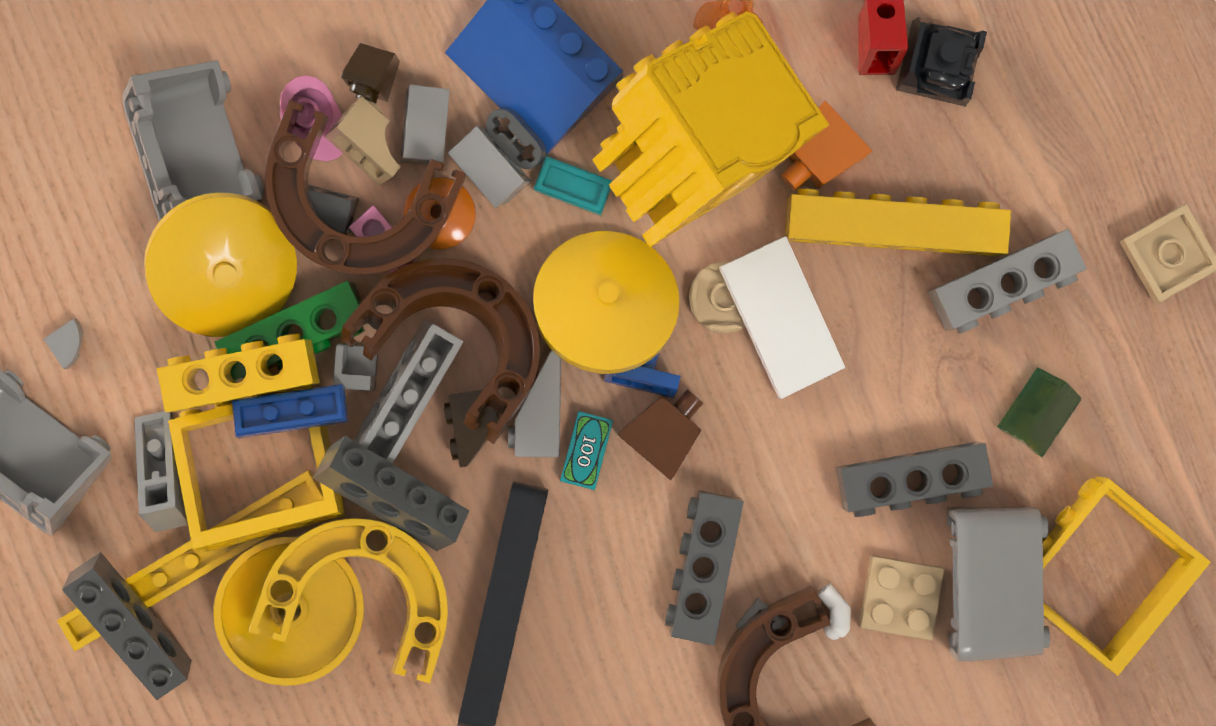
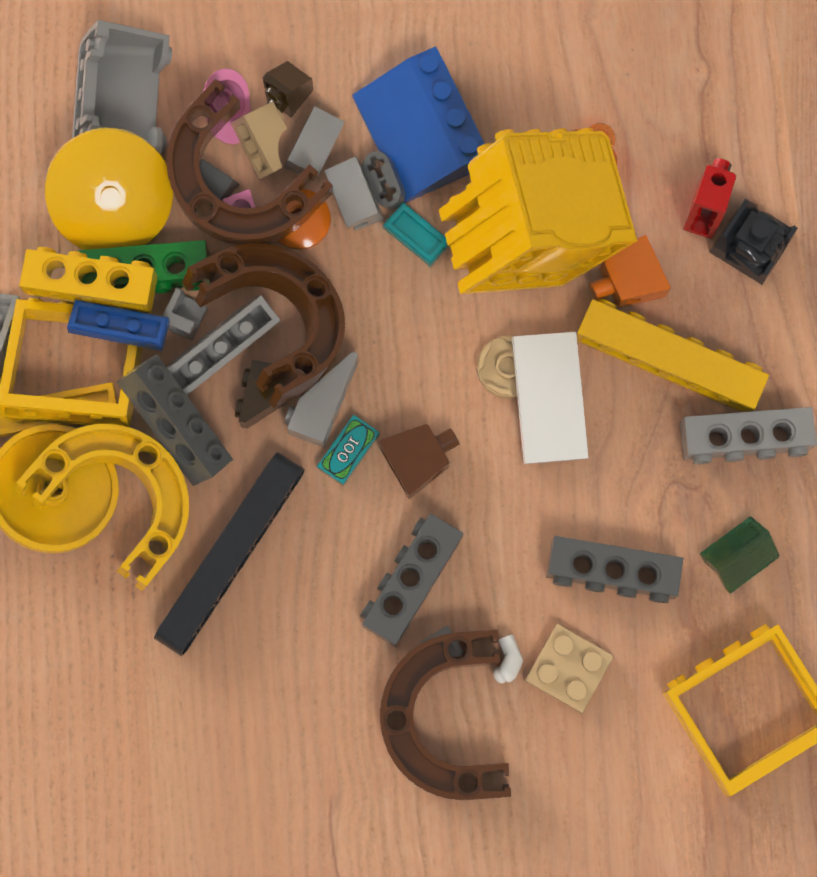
camera: 20 degrees right, 10 degrees down
(605, 302) = (408, 332): yellow dish -> none
(647, 379) = (418, 402): blue tile -> none
(997, 583) = (654, 680): light grey windscreen -> none

